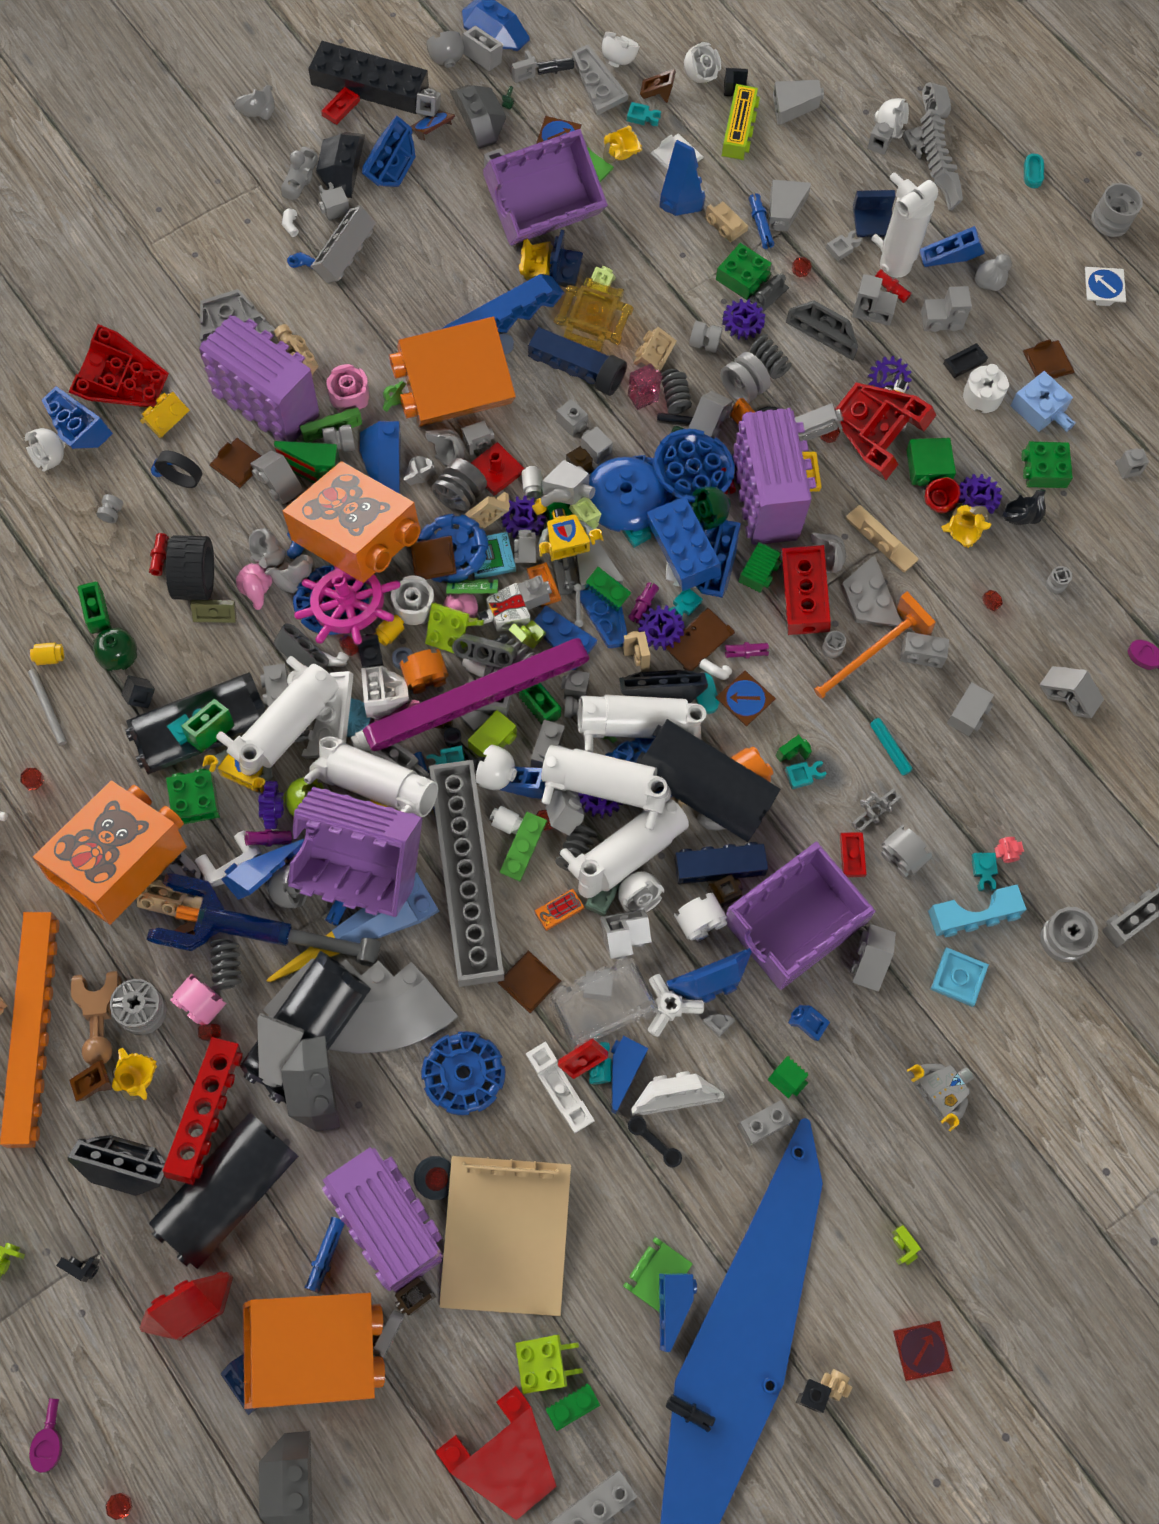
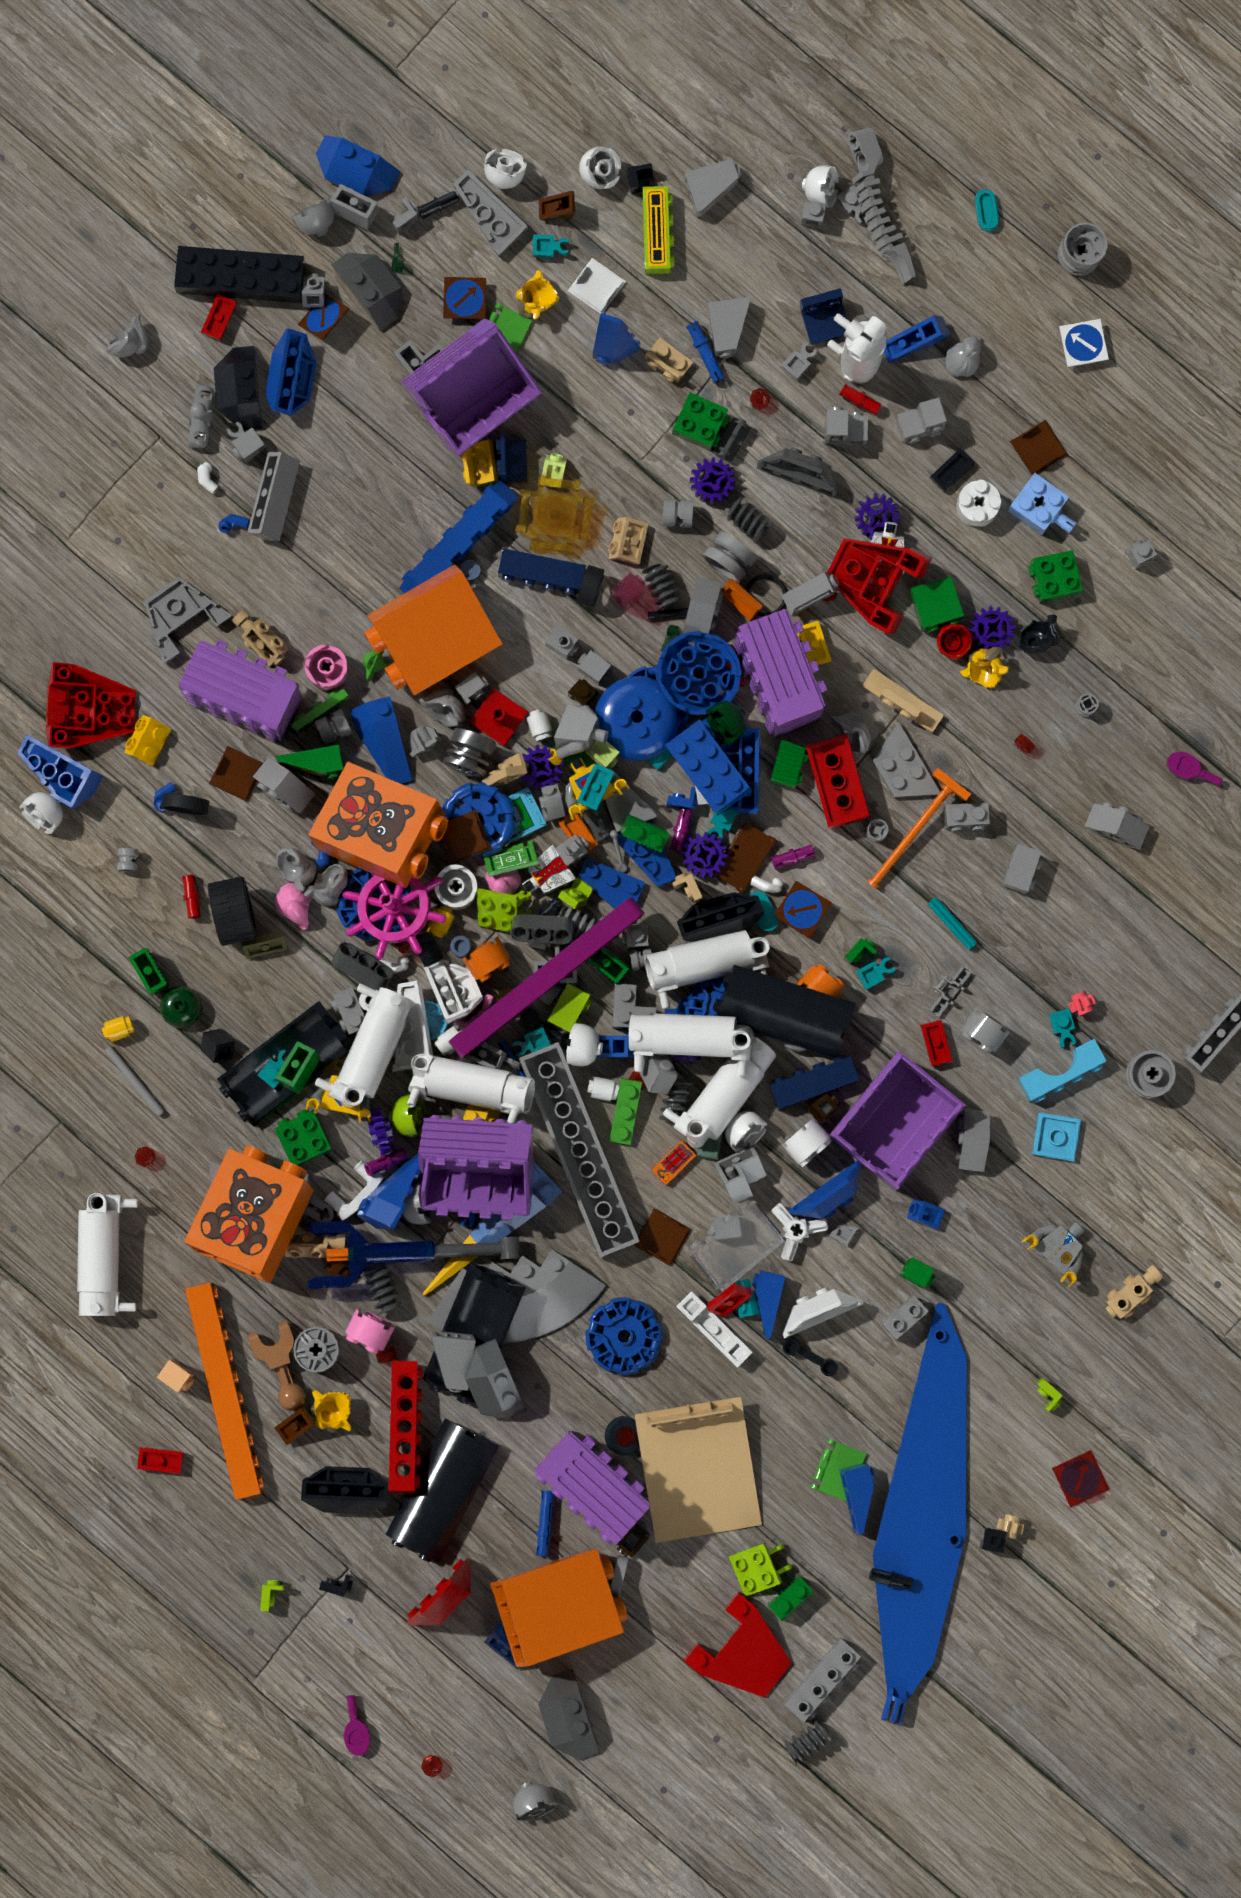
camera: 15 degrees left, 15 degrees up
(570, 531) = (595, 787): none -> teal plate
(648, 574) = (679, 801): none -> blue bracket
(1012, 1159) = (1128, 1294): none -> tan brick

